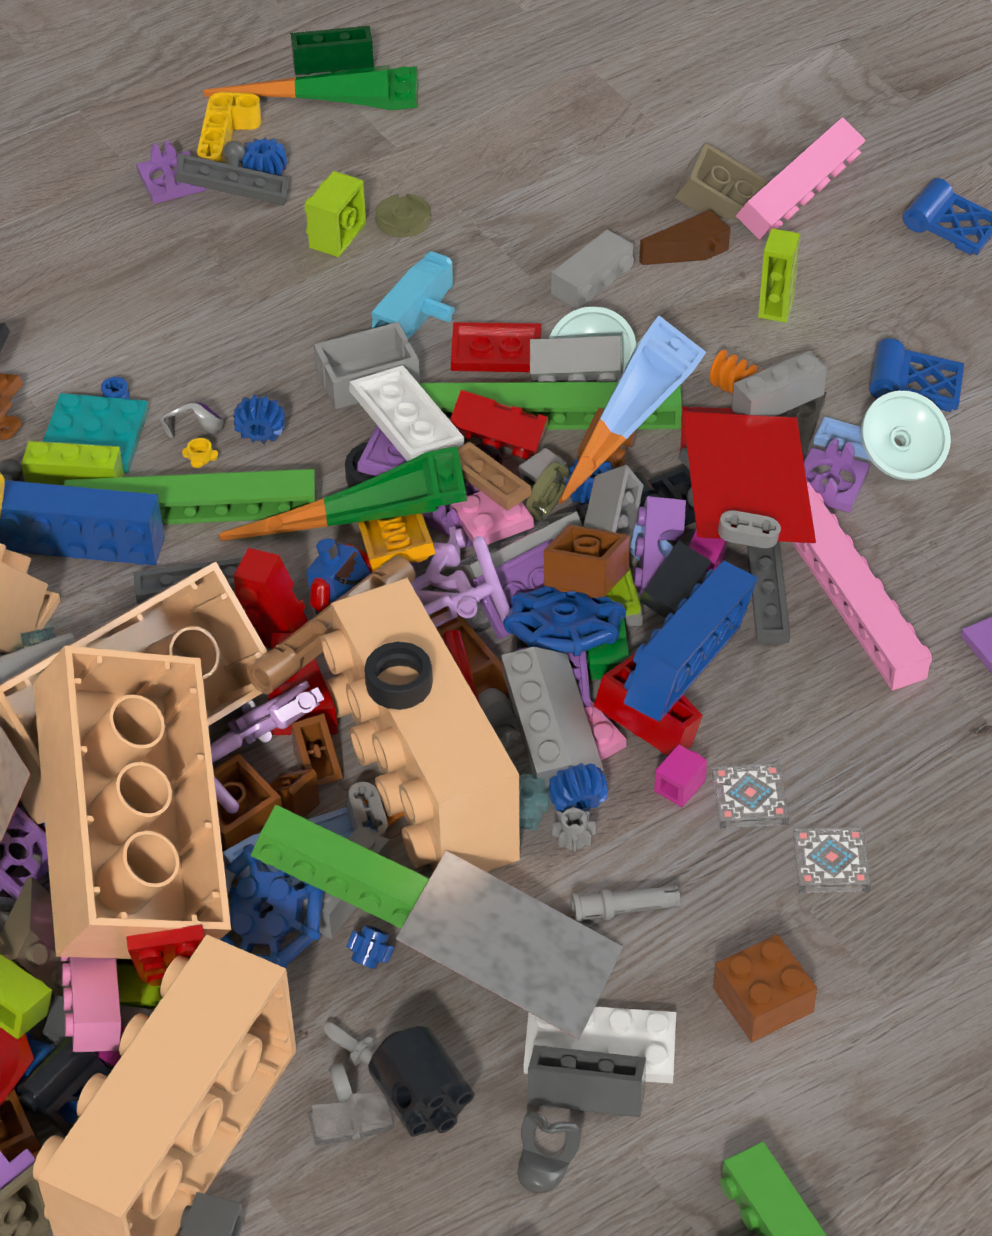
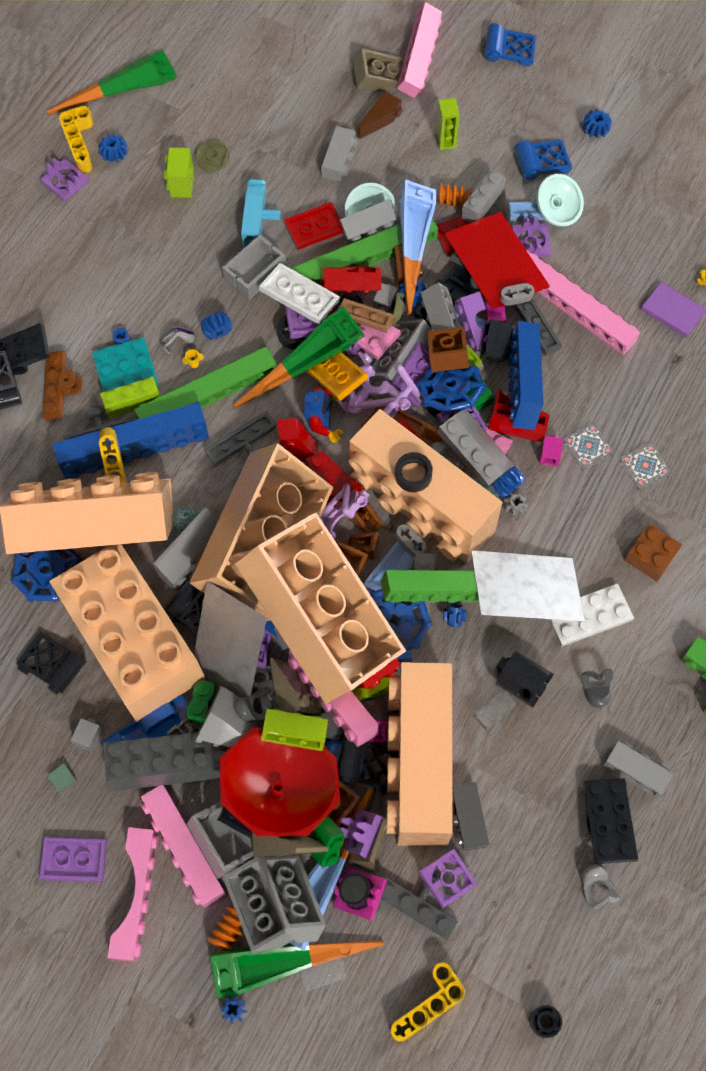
camera: 25 degrees left, 20 degrees up
(230, 177) = (104, 170): dark grey plate -> none
(305, 643) = (340, 453): medium nougat piece -> none
(332, 50) = (109, 56): dark green brick -> none
(340, 1082) = (482, 694): light grey tile -> none
(359, 1051) = (480, 672): light grey piece -> none
(586, 1081) = (599, 641): dark grey brick -> none
(608, 904) = (554, 538): light grey pin -> none

